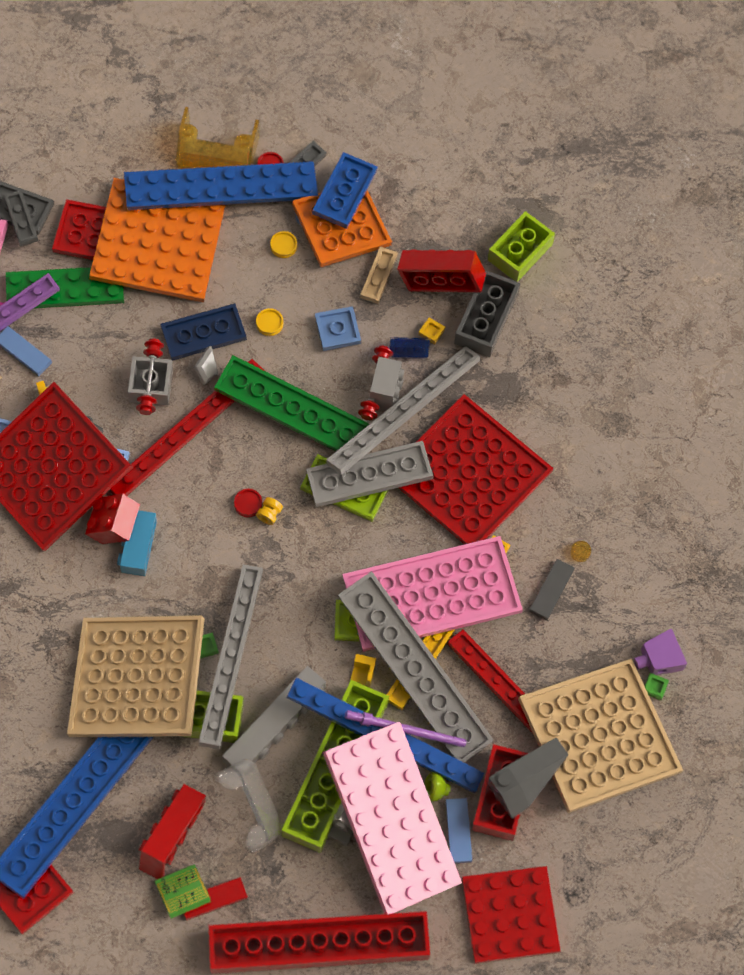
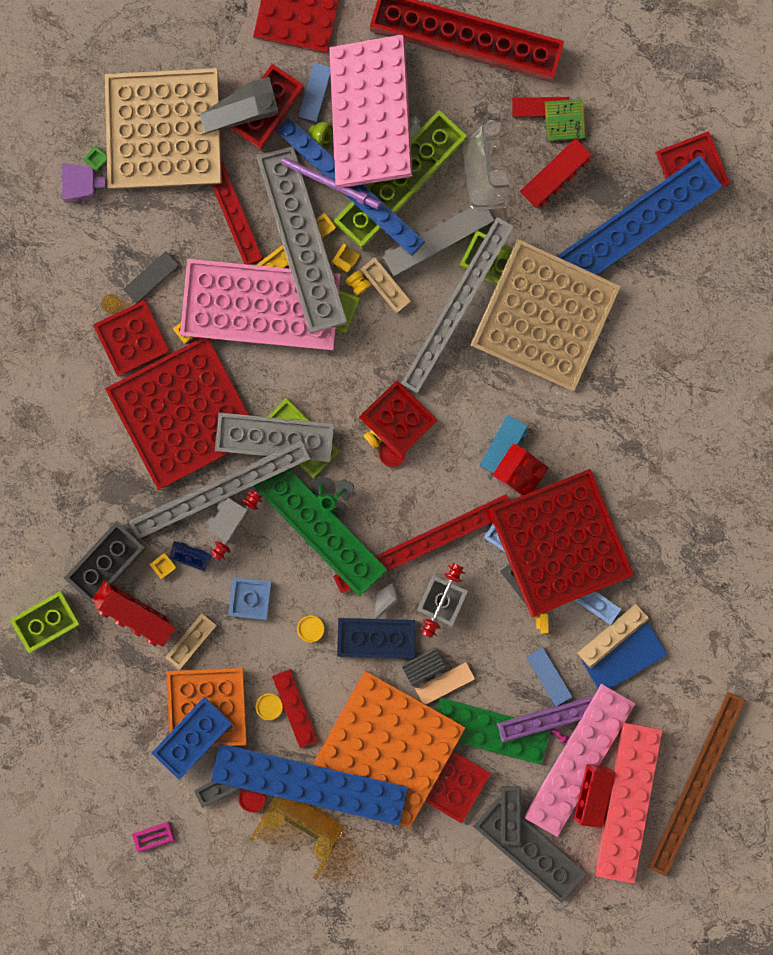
camera: 155 degrees left, 20 degrees up
(123, 314) = (445, 683): none -> light nougat tile
(148, 319) = (423, 667): none -> dark grey brick
(208, 646) = (470, 330): bright green tile -> none
(253, 530) = (398, 418): none -> red plate
(259, 250) = (294, 708): none -> red plate
(289, 432) = (329, 501): none -> dark grey plant
(313, 657) = (385, 285): none -> tan plate
(341, 117) = (137, 842): none -> dark pink tile
(341, 651) = (358, 282): none -> yellow wheel
(547, 524) = (131, 338): none -> red plate

